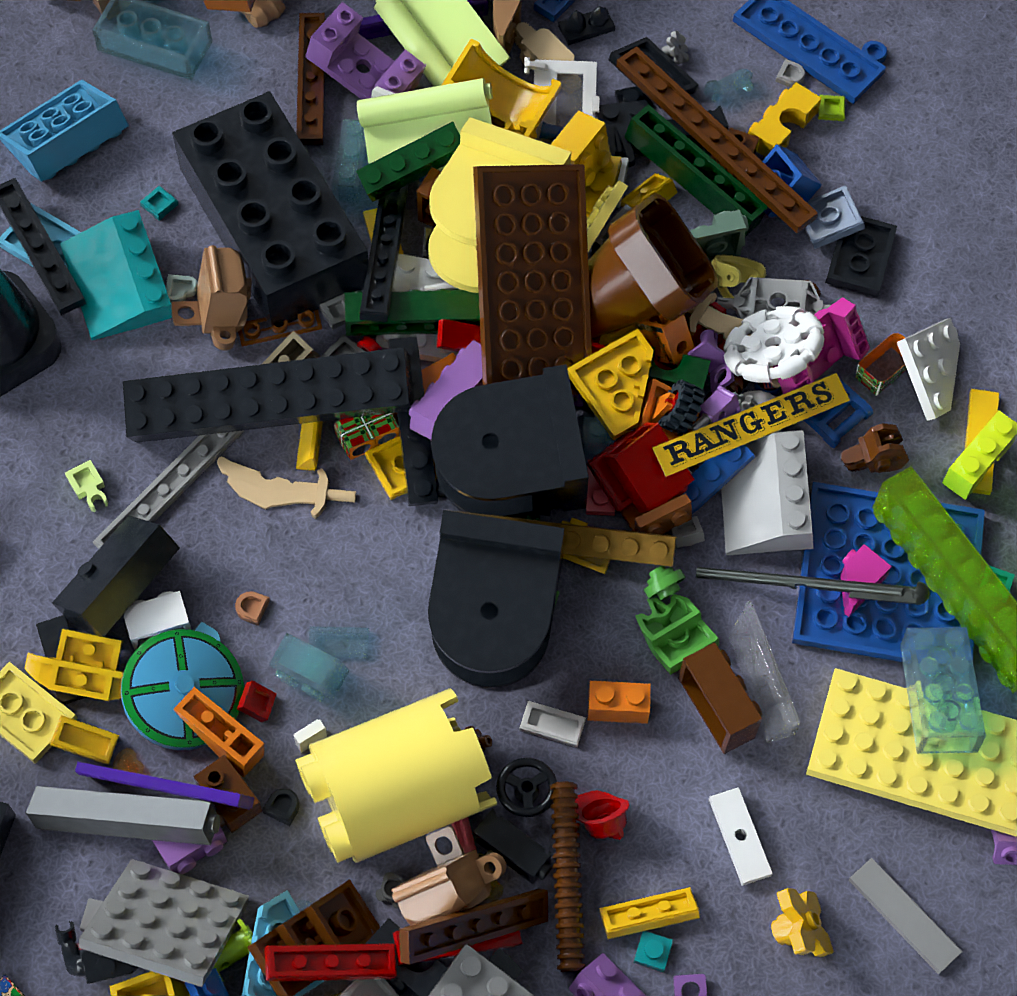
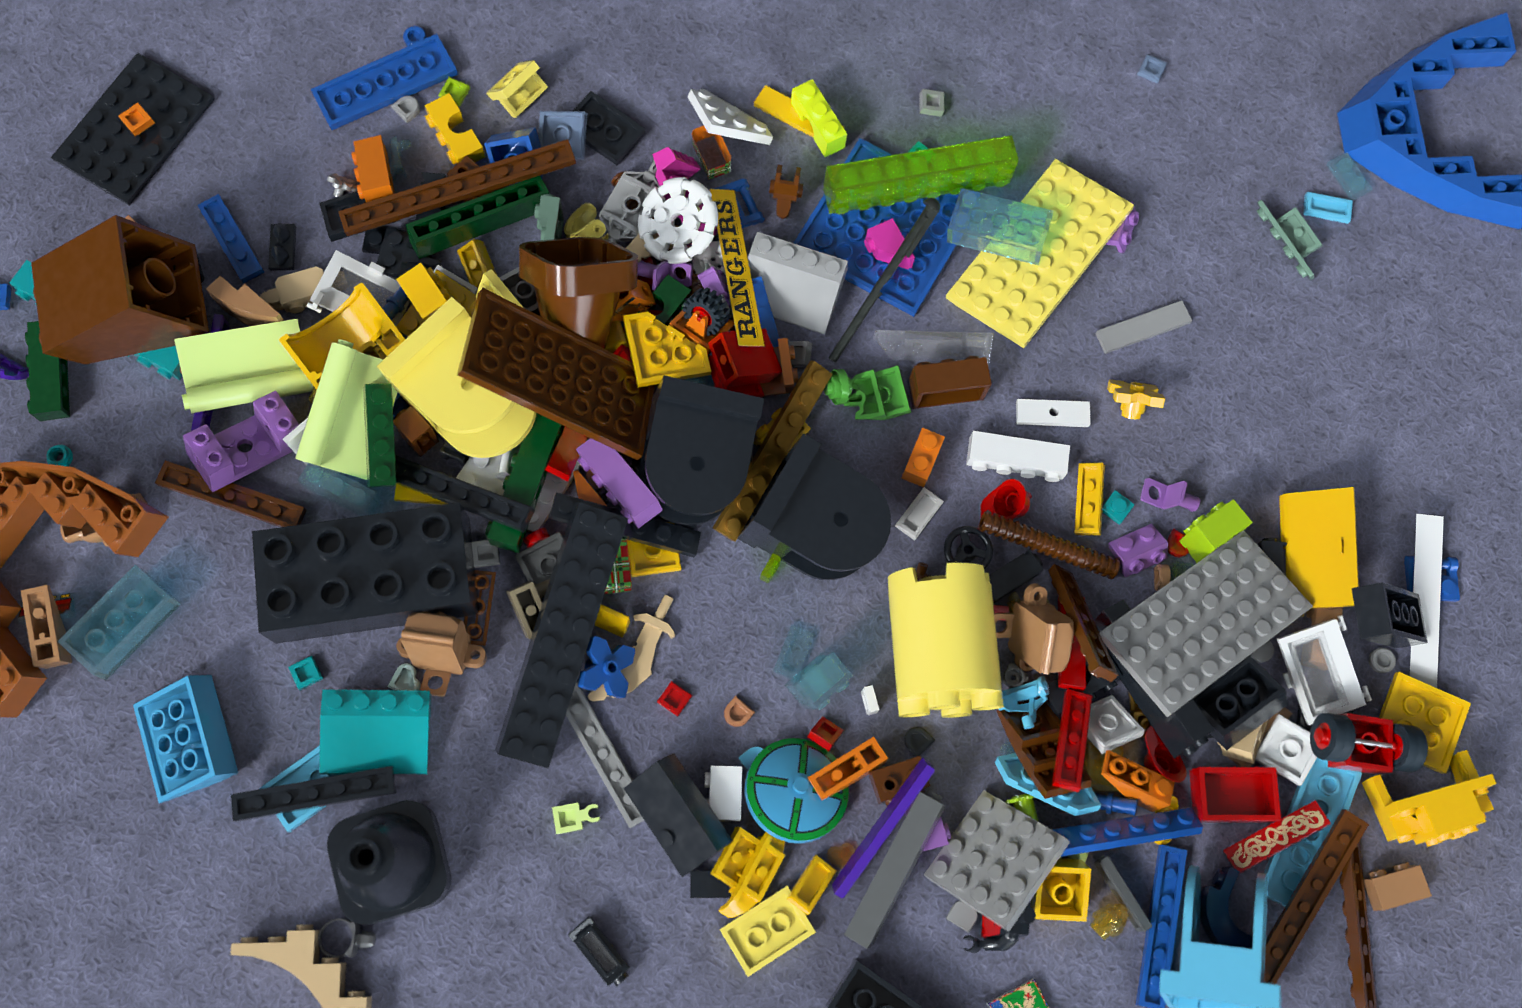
camera: 75 degrees left, 10 degrees up
(239, 446) = (605, 667): none -> blue plant
(245, 539) = (674, 698): none -> red tile
(362, 889) = (1026, 692): none -> medium azure helmet
(420, 583) = (770, 568): none -> clear neon green tile
(667, 810) = (1018, 455): none -> white brick
(703, 63) = (372, 169): none -> orange brick
(862, 161) = (518, 88): none -> light yellow bracket

